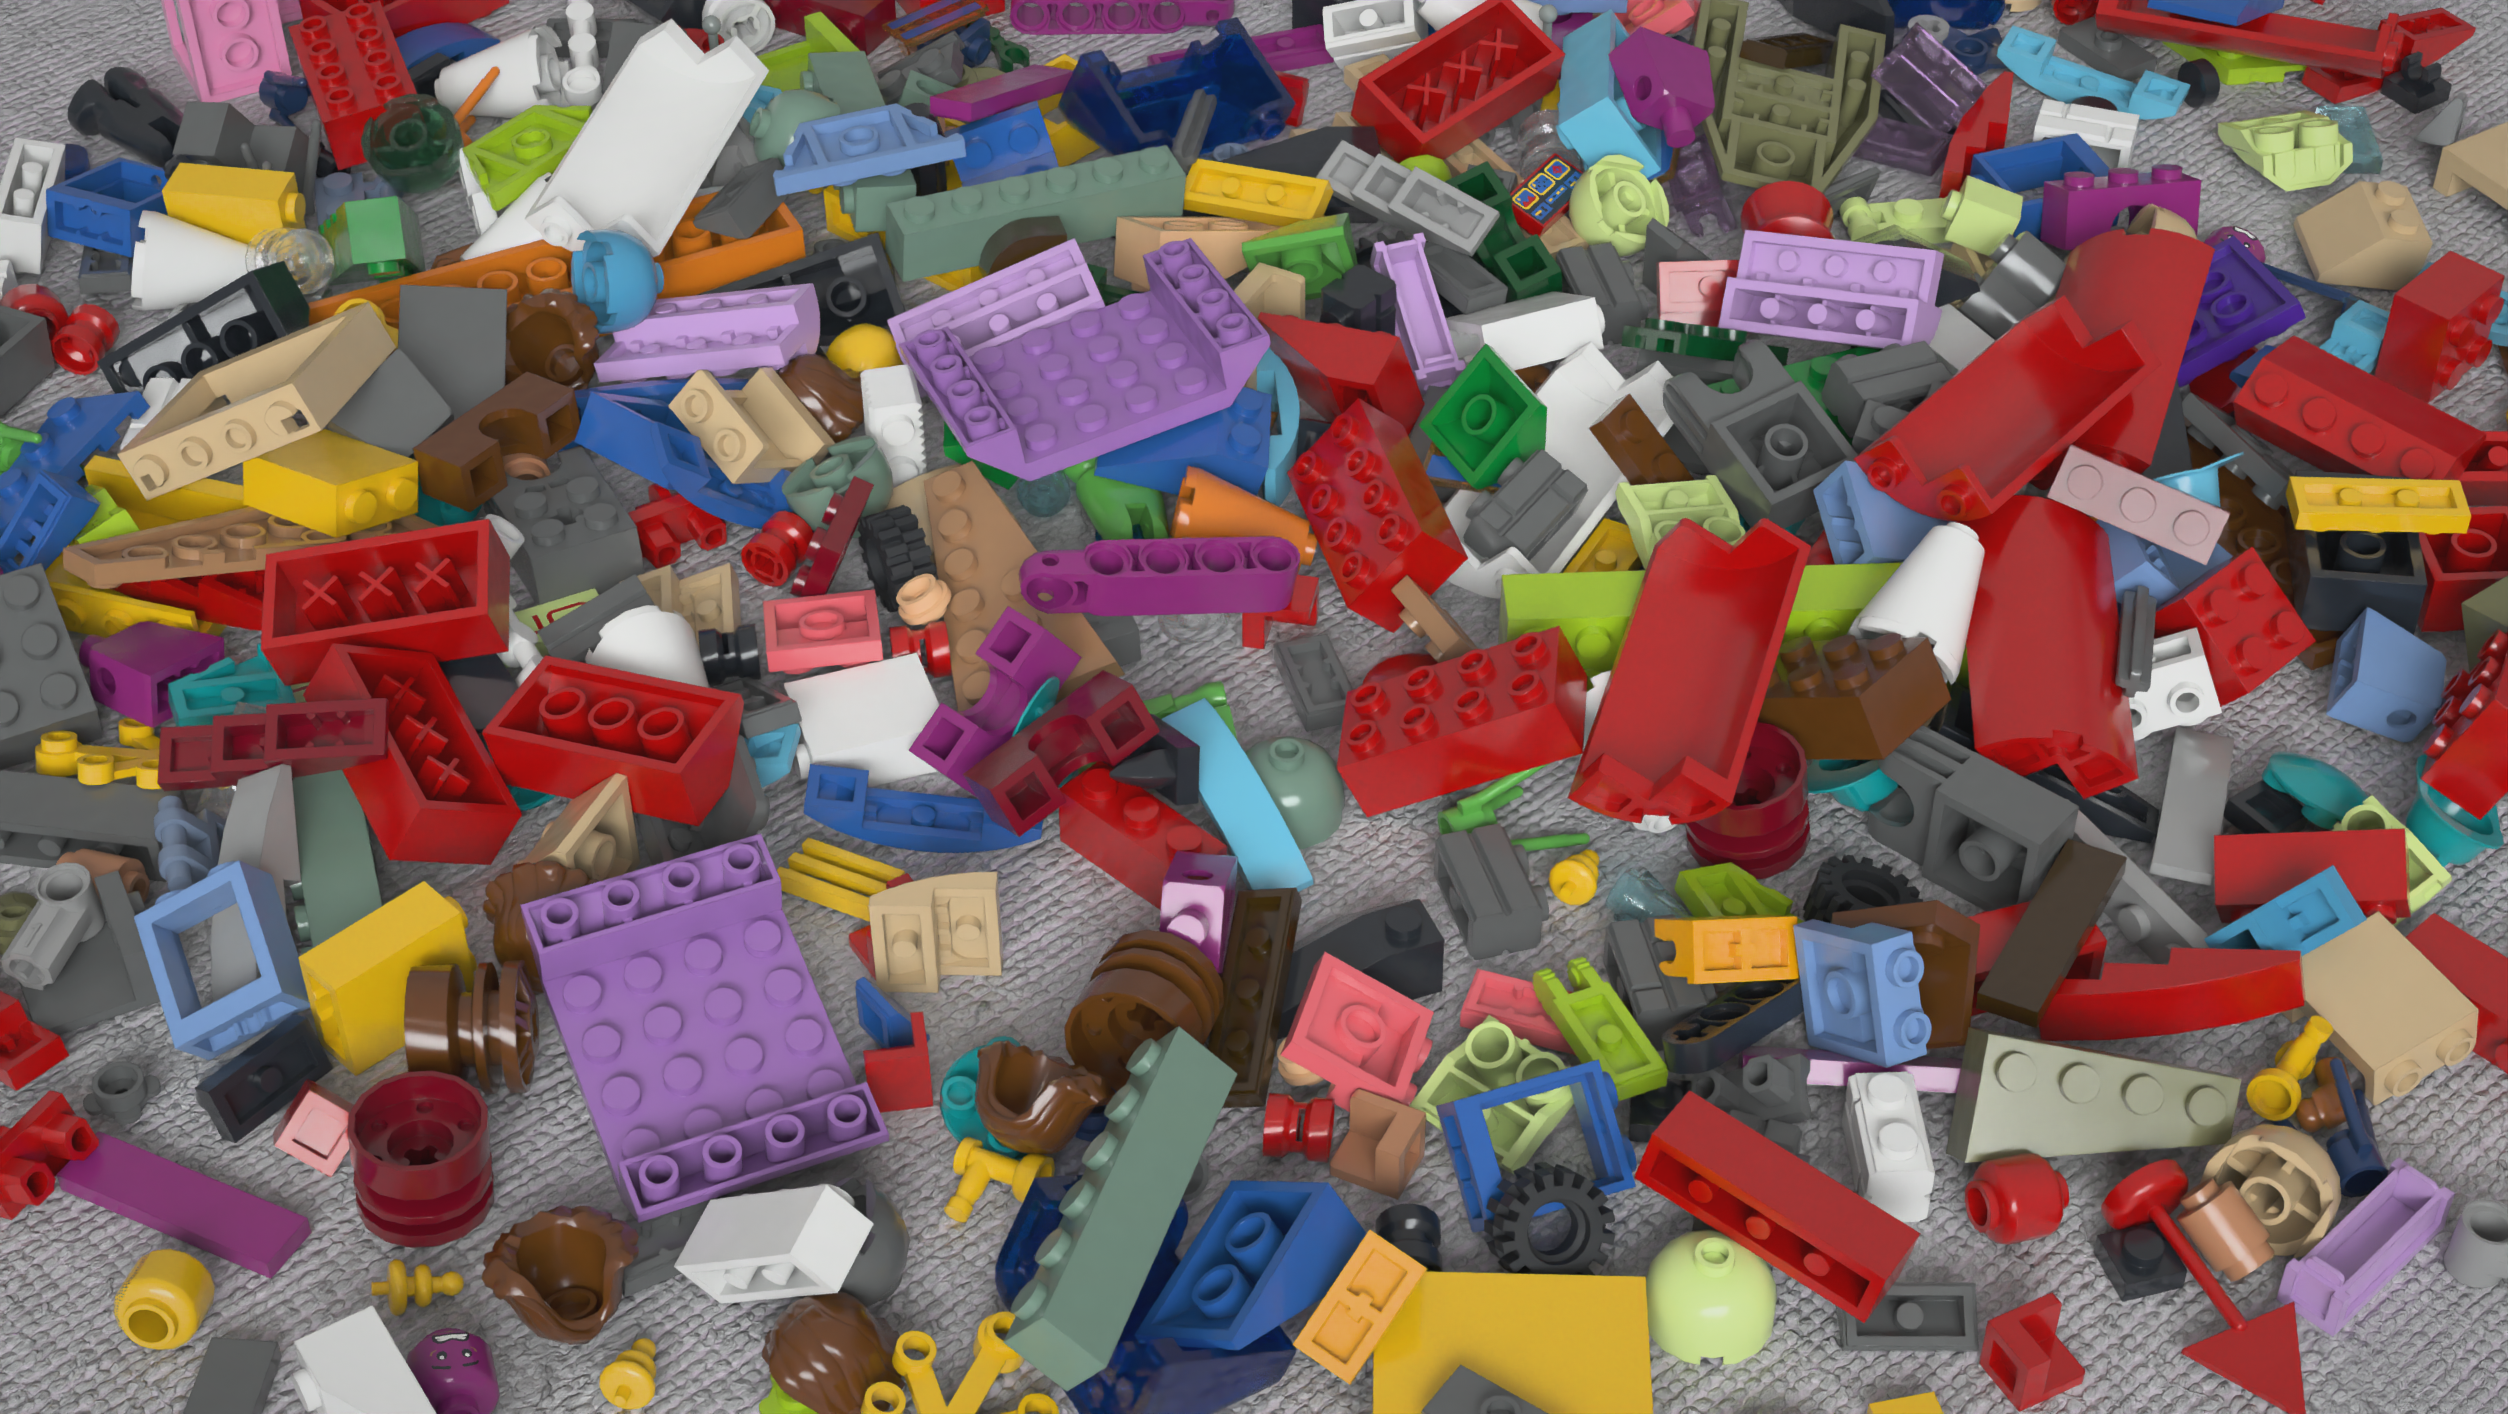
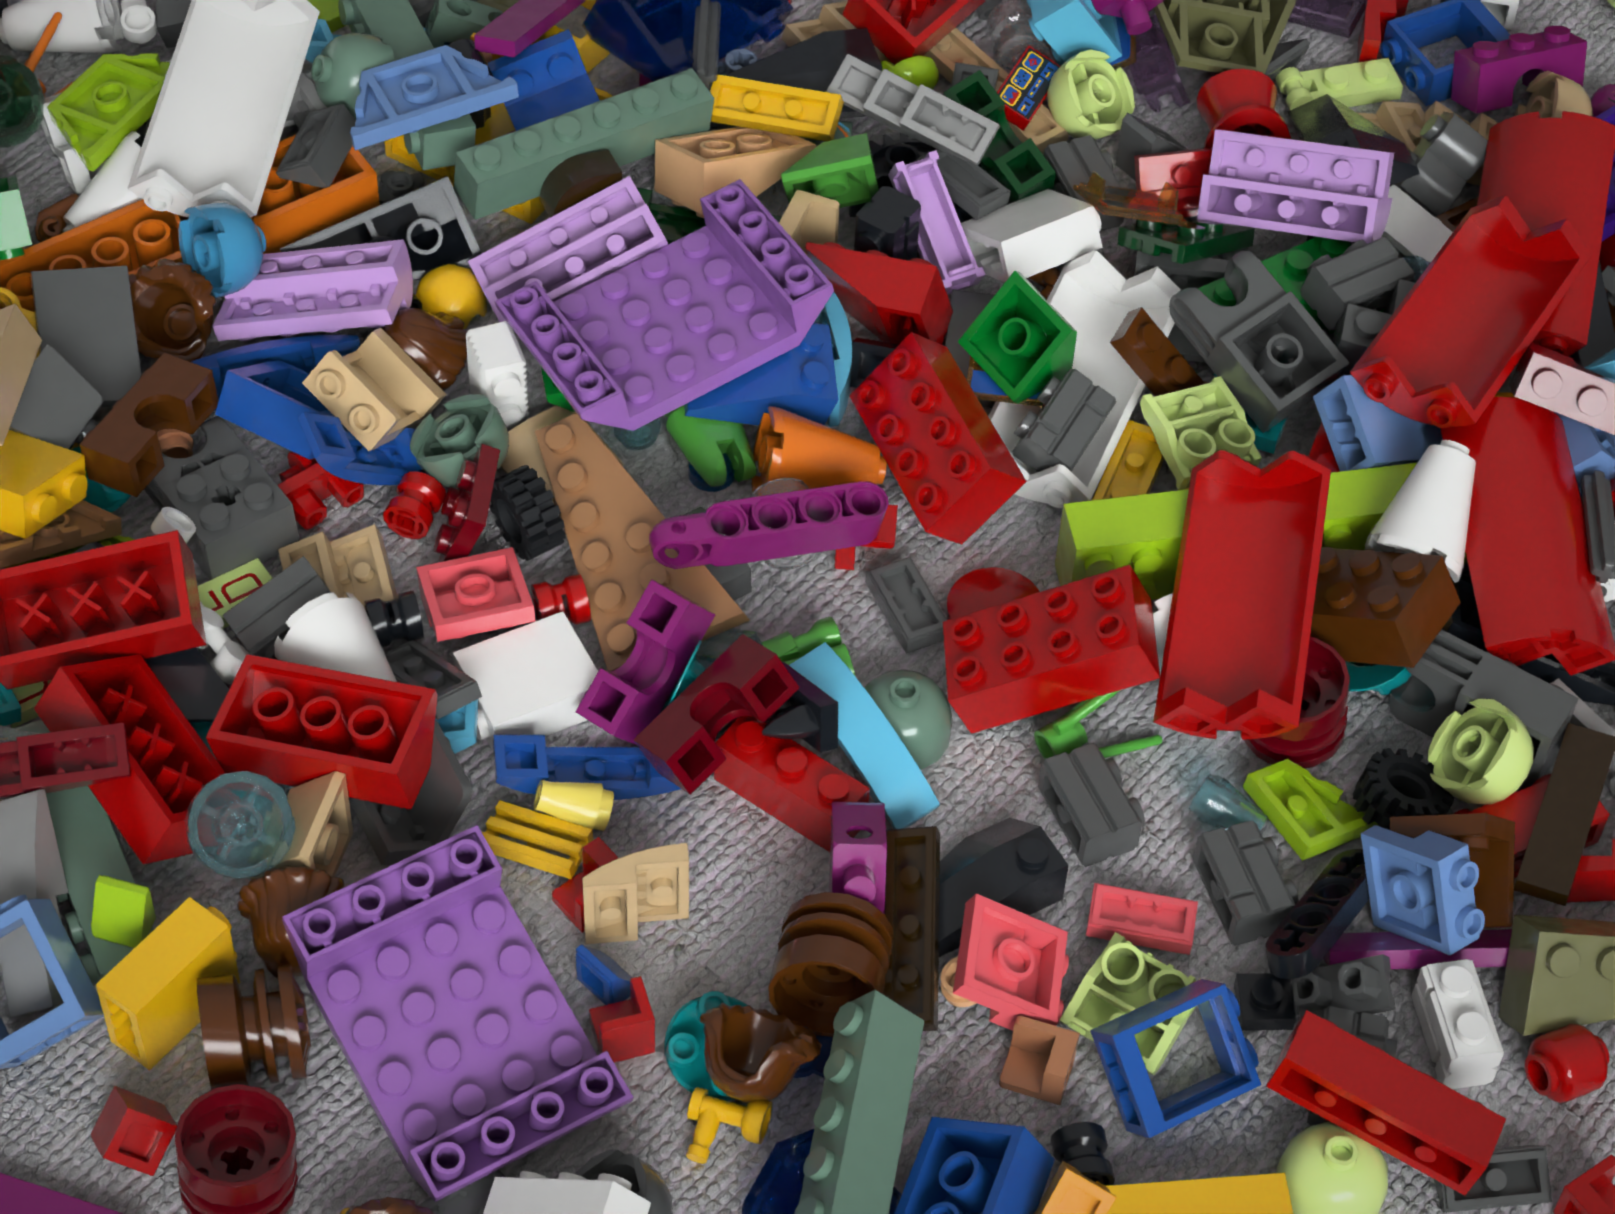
camera: 10 degrees left, 10 degrees up
(263, 1078) = (74, 1087): black tile -> none
(348, 892) = (121, 911): none -> lime slope
(495, 813) = (239, 825): none -> clear light blue cylinder
(891, 842) = (575, 802): none -> light yellow cone
(923, 600) = (557, 554): light nougat plate -> none
(1283, 1127) = (959, 1050): red wheel -> none
(1426, 616) = (1019, 560): medium nougat plate -> none
(1525, 1197) = (1181, 1113): black tyre -> none
(1575, 878) = (1159, 781): yellow hair -> none
(1601, 1028) = (1209, 936): lime hinge -> none
(1641, 301) = (1132, 202): none -> clear orange piece
(1730, 948) = (1307, 852): light orange hinge -> none
(1958, 858) = (1481, 753): none -> yellowish green cylinder
(1980, 215) = (1404, 87): yellowish green brick -> none

